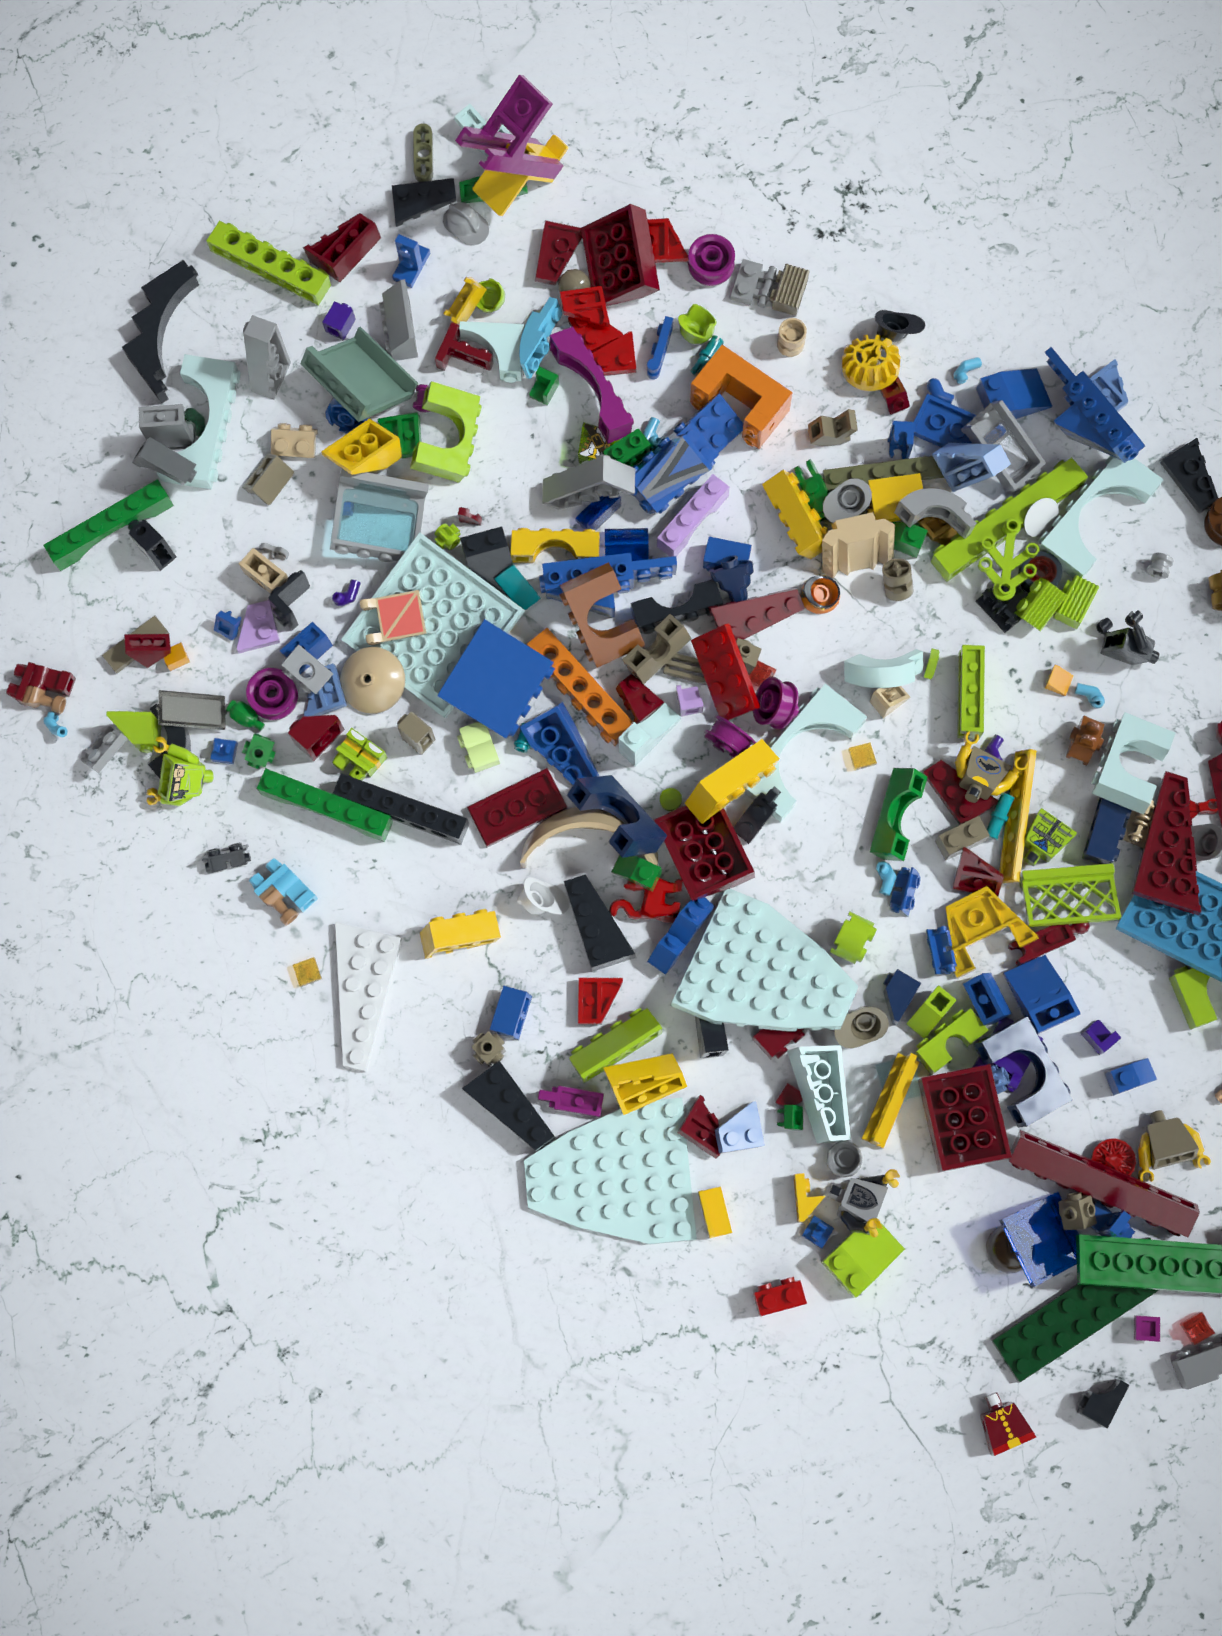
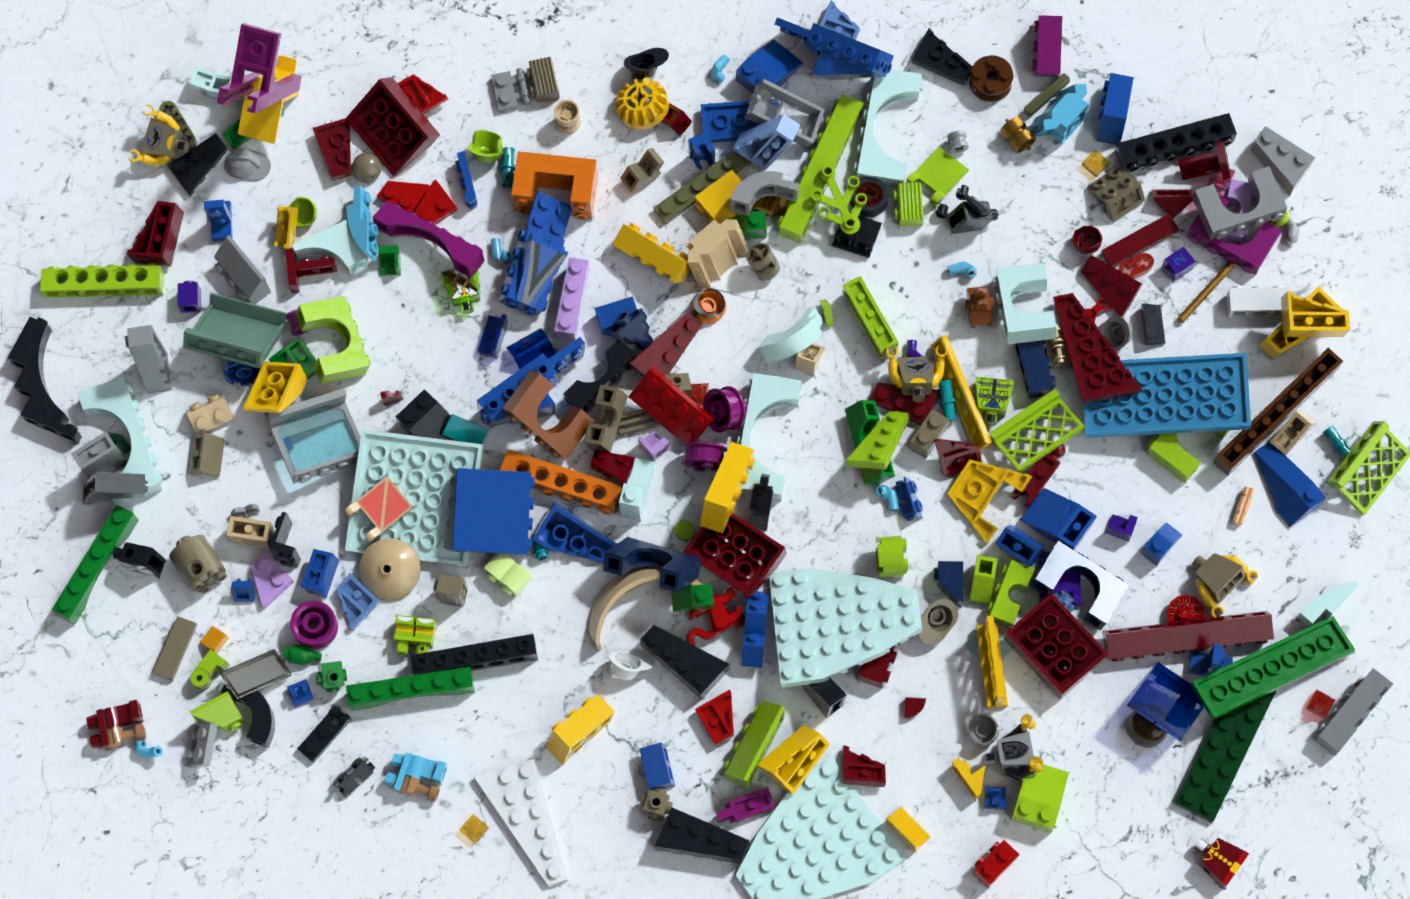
camera: 30 degrees left, 5 degrees down
(147, 648) = (188, 645): dark red slope -> none
(152, 680) = (207, 669): none -> lime leg
(180, 776) = (279, 731): lime torso -> none
(199, 575) = (197, 563): none -> dark tan cylinder
(222, 802) = (324, 734): none -> black plate
(300, 657) = (345, 586): light grey brick -> none
(315, 733) = (369, 636): dark red slope -> none
(348, 596) = (329, 514): dark purple arm -> none
(398, 158) = (161, 141): none -> torso
(447, 536) = (383, 421): lime gear -> none
(517, 807) = (566, 605): dark red tile -> none
(528, 544) = (452, 392): yellow arch -> none
(585, 305) = (387, 178): red wing -> none
(588, 483) = (474, 317): light grey wedge -> none
(629, 449) = (489, 276): green bracket -> none
(712, 247) = (466, 77): magenta wheel -> none
(741, 1131) = (891, 754): wing -> none
(792, 1117) = (925, 721): green tile -> none
(813, 487) = (658, 227): green hinge -> none
(823, 1090) = (936, 686): light aqua wedge -> none
(847, 500) = (687, 221): light grey piece -> none
(862, 756) = (815, 414): clear yellow tile -> none
(908, 821) = (880, 443): none -> lime wing
(936, 390) = (706, 98): blue arm -> none
(942, 960) = (970, 535): blue hinge -> none
(1040, 603) = (883, 220): lime brick -> none
(1041, 517) = (845, 153): white sticker -> none
(1059, 680) = (932, 272): light orange slope -> none
(1077, 1211) = (1181, 667): dark tan brick -> none
(1103, 1405) = (1283, 804): black arch -> none
(1123, 588) = (940, 174): none -> lime flag
(1147, 1328) = (1283, 724): magenta tile -> none

